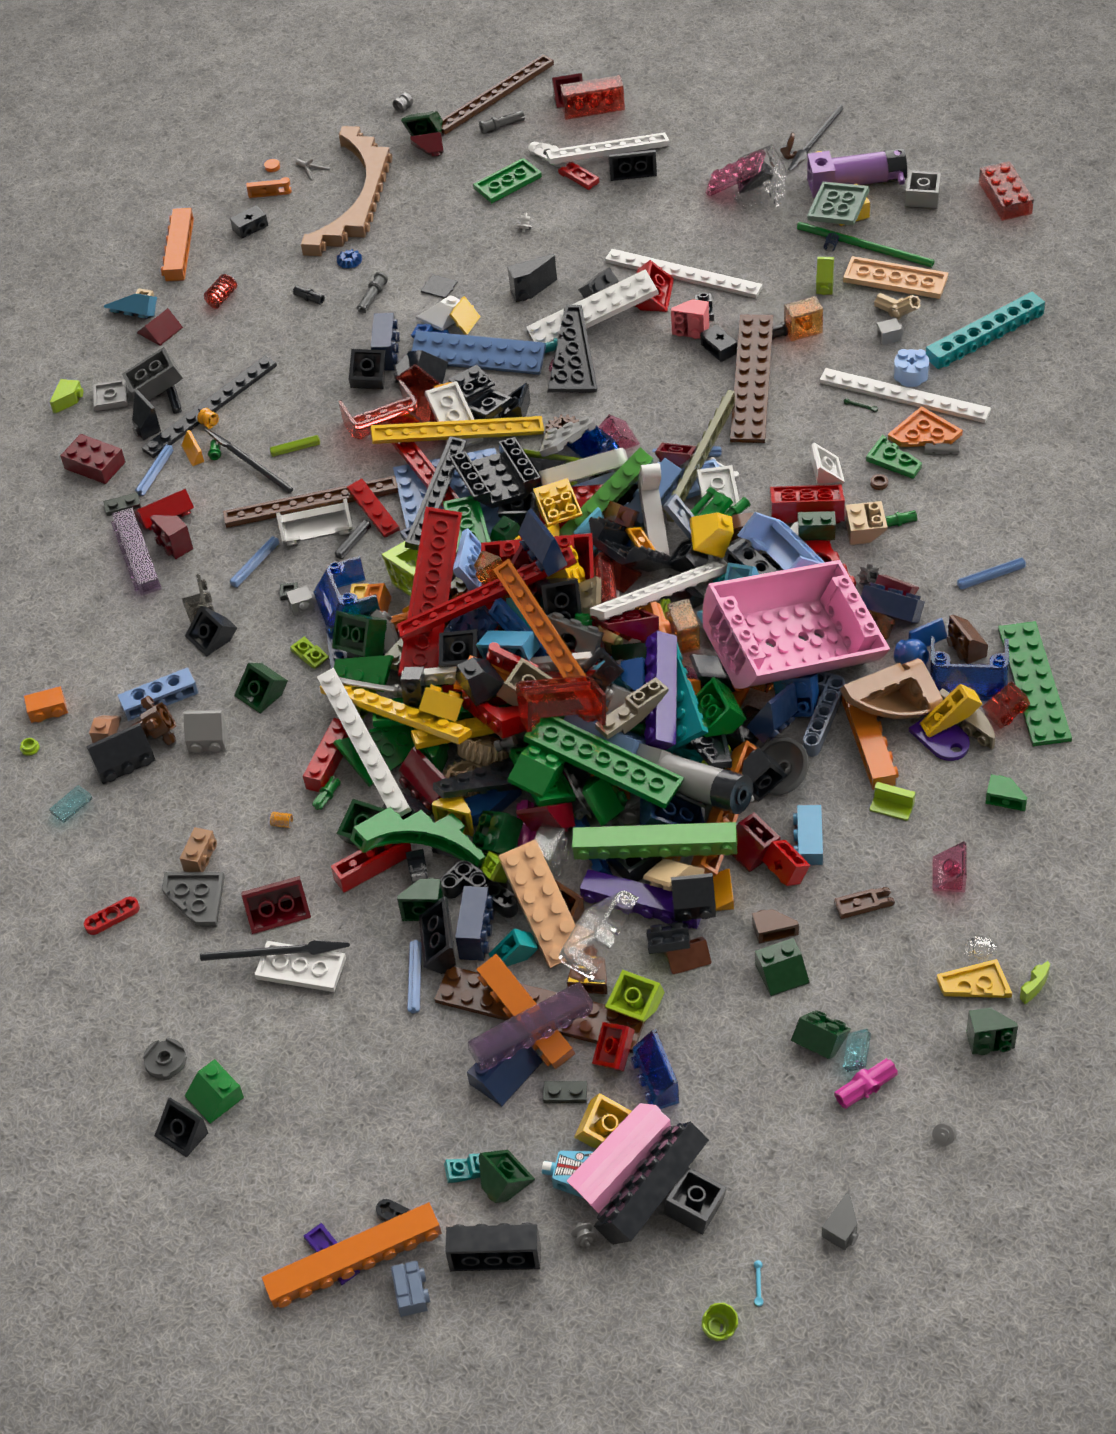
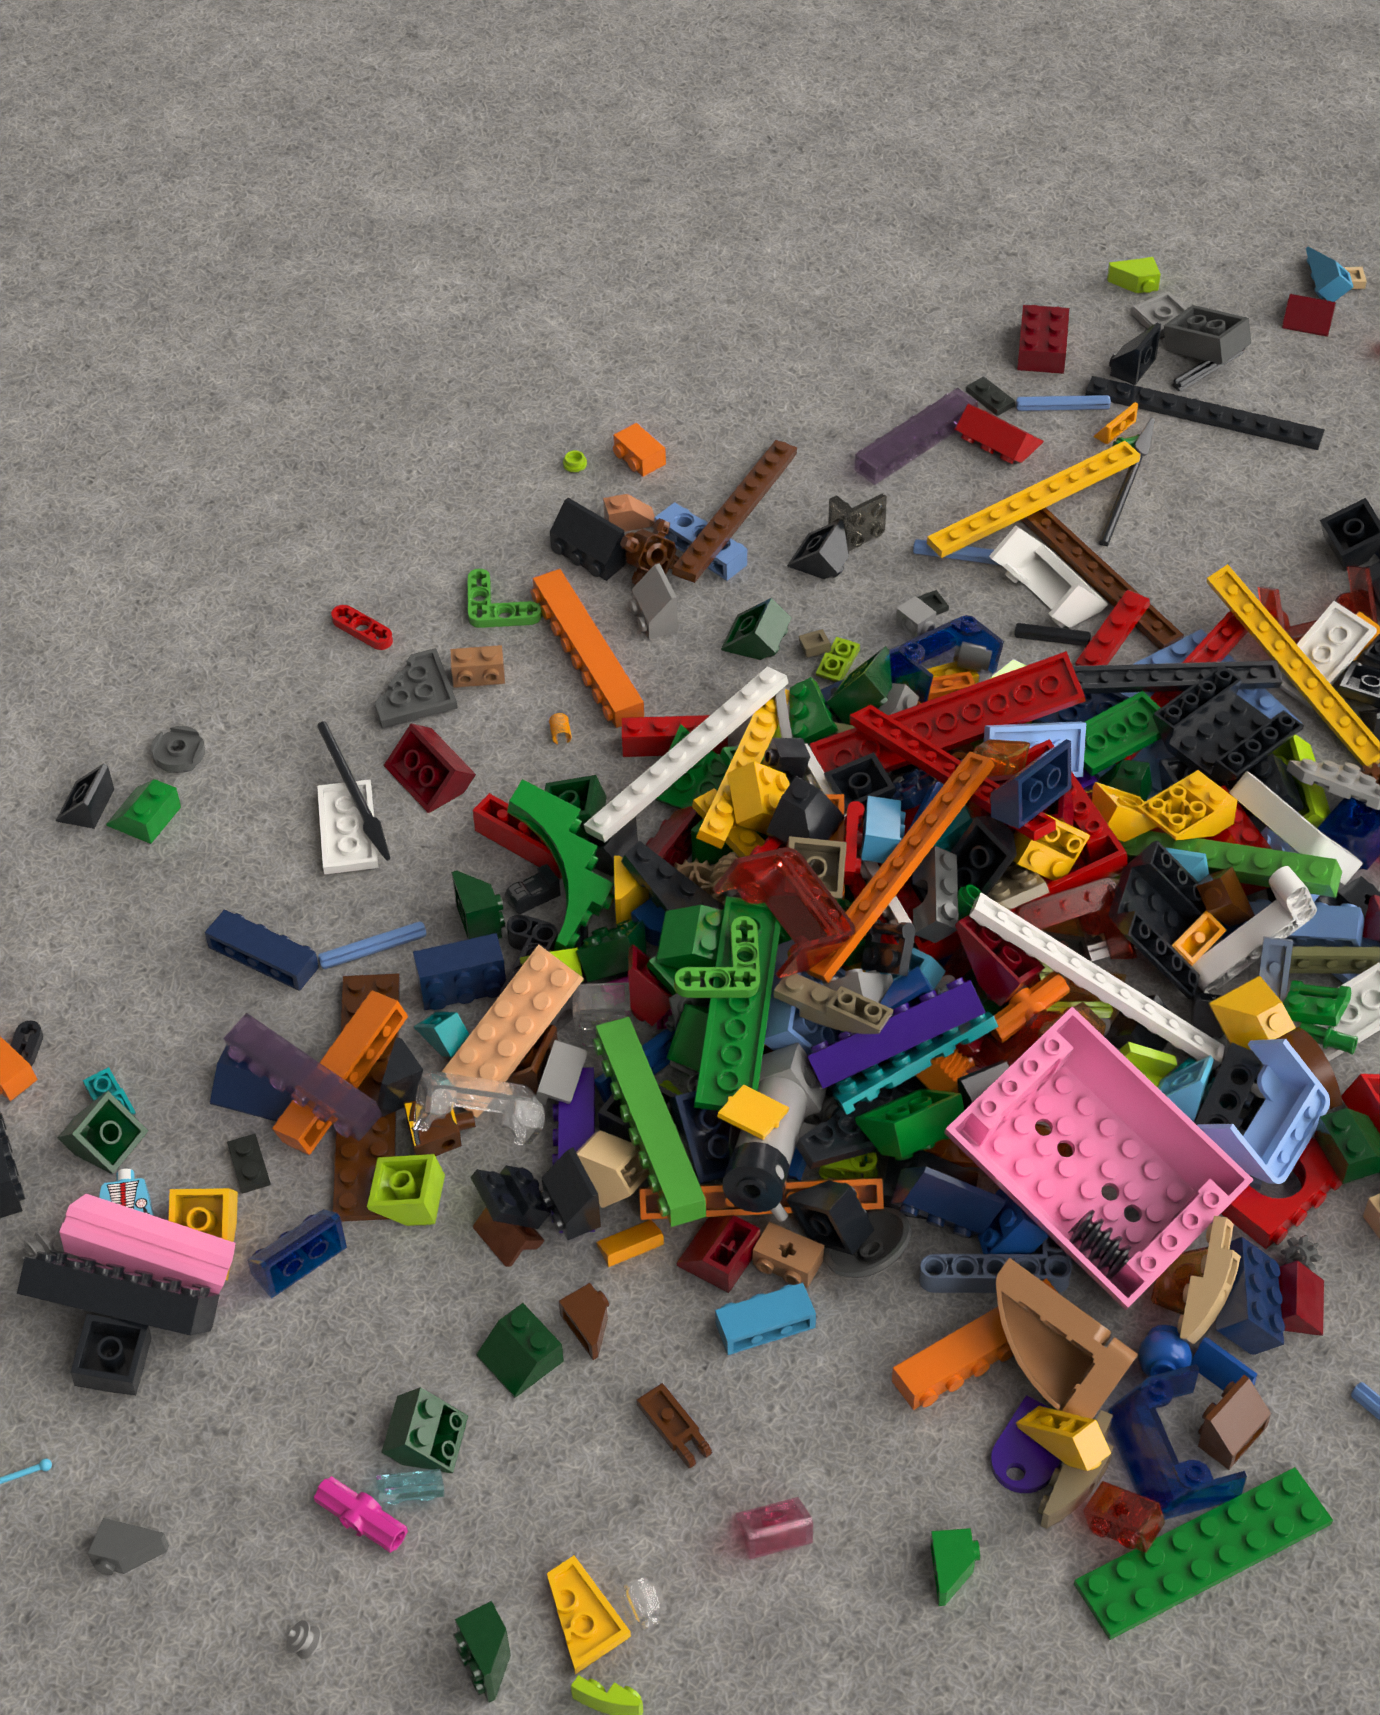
camera: 65 degrees right, 0 degrees up
(70, 803) = (505, 529): clear light blue plate -> none
(143, 834) = (491, 611): none -> bright green beam
(148, 664) = (734, 511): none -> reddish brown plate
(172, 535) = (949, 455): dark red slope -> none
(207, 418) = (1177, 416): light orange wheel -> none
(217, 783) = (587, 647): none -> orange brick
(239, 508) = (1032, 499): none -> yellow plate
(289, 659) = (814, 643): none -> dark tan plate
(294, 445) = (1183, 518): lime axle -> none
(326, 793) = (618, 757): green axle -> none
(357, 578) = (972, 656): none -> dark grey brick
(360, 425) = (1295, 595): clear red windscreen -> none
(387, 1042) = (262, 949): none -> dark blue brick
(437, 937) = (399, 951): black slope -> none
(549, 973) = (399, 1080): none -> black slope
(584, 747) = (738, 971): none -> bright green beam
(587, 885) = (561, 1073): none -> light grey panel
(613, 1046) = (323, 1191): red slope -> none
(689, 774) = (753, 1112): none -> yellow piece
(772, 808) = (787, 1255): none -> medium nougat brick
(785, 862) = (697, 1300): red brick -> none
(837, 647) = (1100, 1244): none -> black piece
(892, 801) = (872, 1413): lime panel -> none
(894, 612) = (1208, 1294): none -> tan slope

